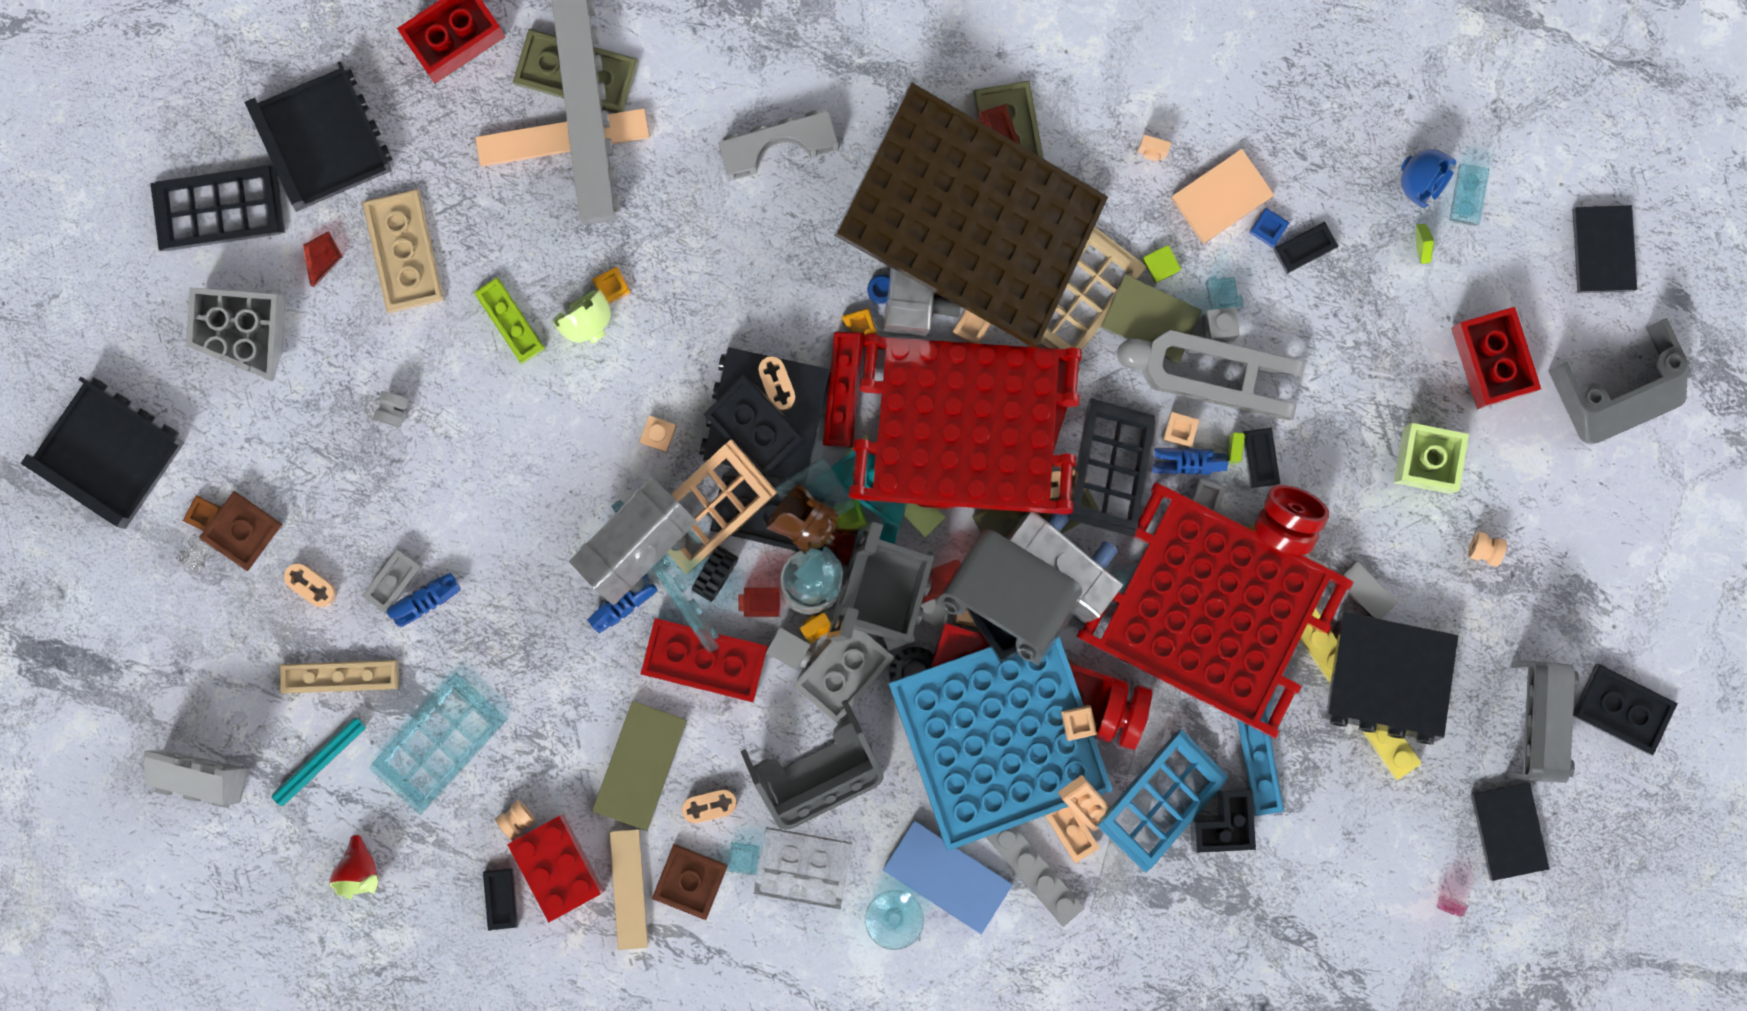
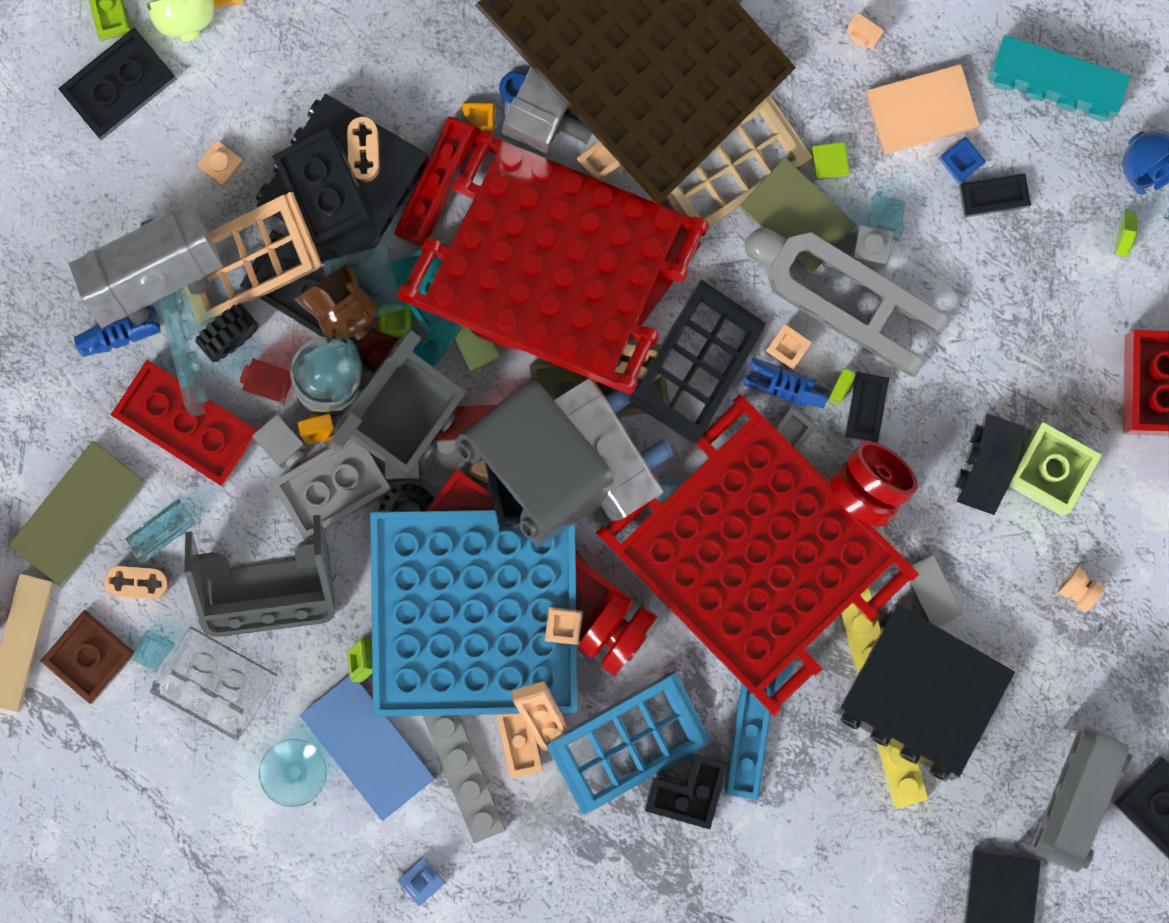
camera: 25 degrees right, 0 degrees up
(548, 395) = (117, 83): none -> black tile
(714, 756) = (160, 531): none -> clear light blue plate
(919, 807) = (360, 660): none -> lime tile
(1030, 973) = (421, 881): none -> medium blue tile
(1325, 134) = (1058, 78): none -> teal brick
(1380, 470) = (991, 463): none -> black brick

